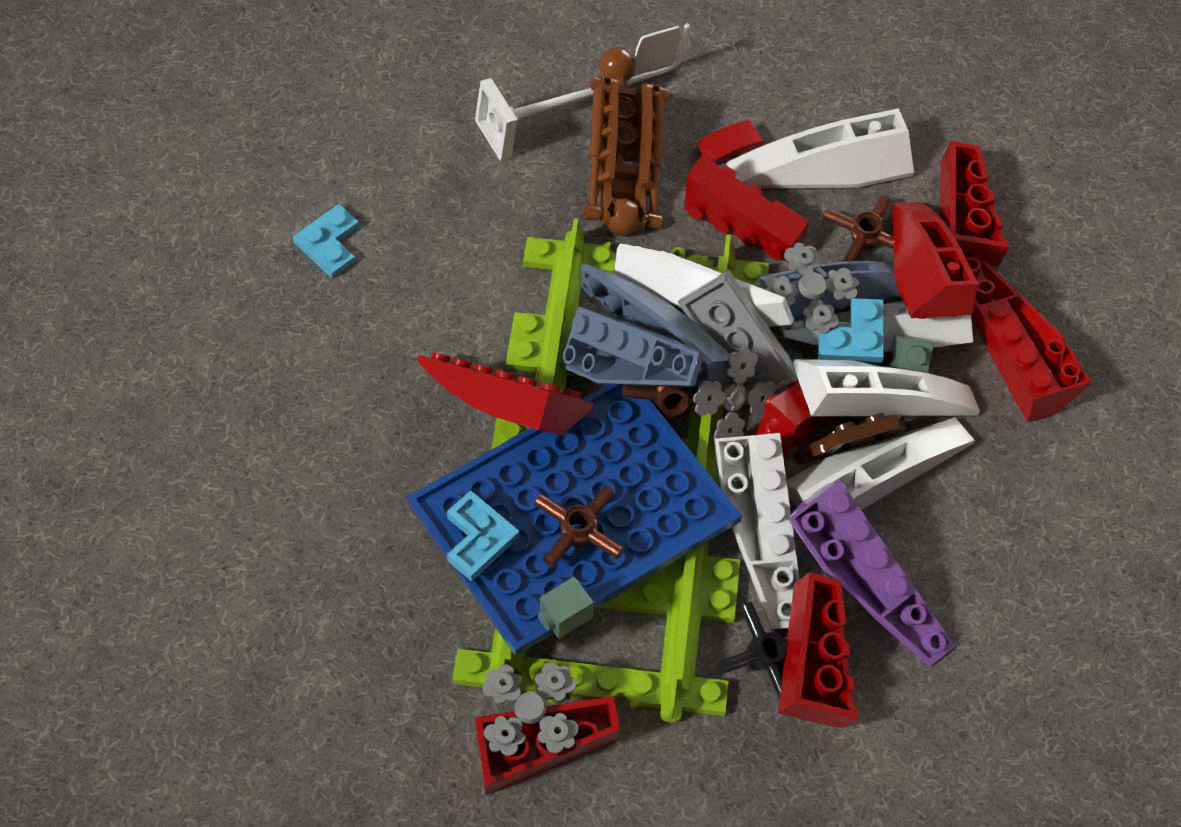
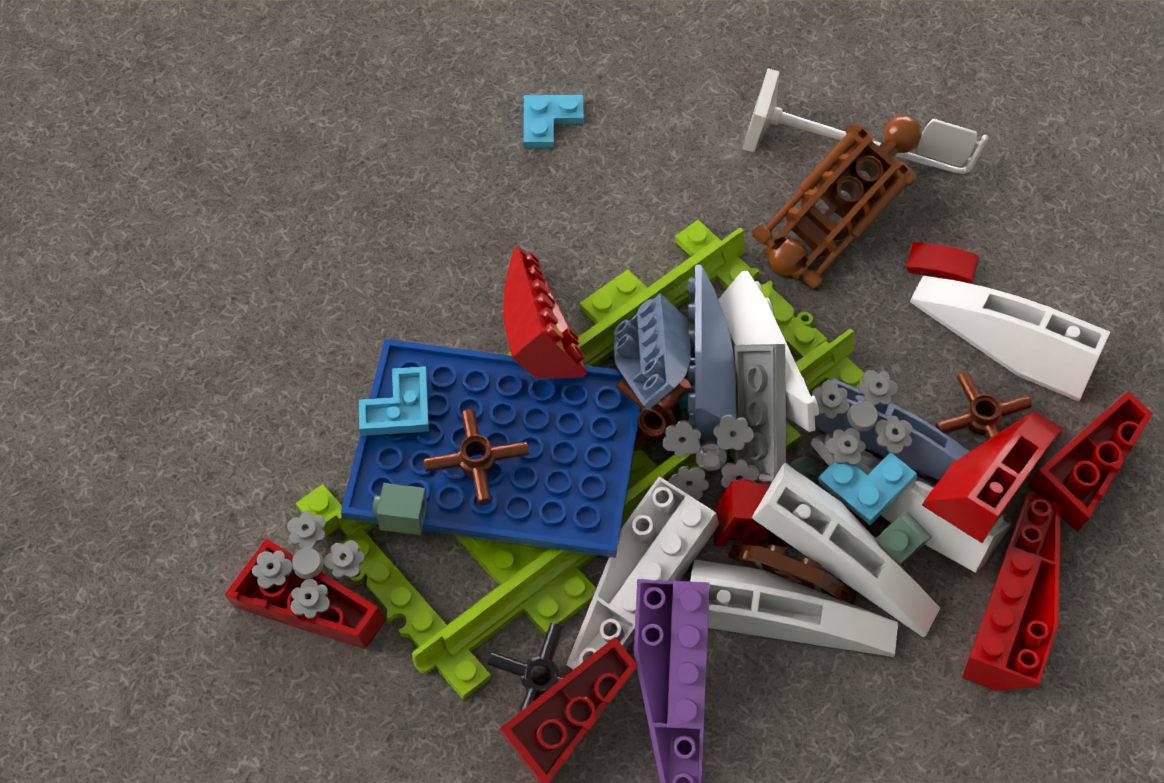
camera: 45 degrees right, 0 degrees up
(741, 210) = (889, 320): red wedge -> none

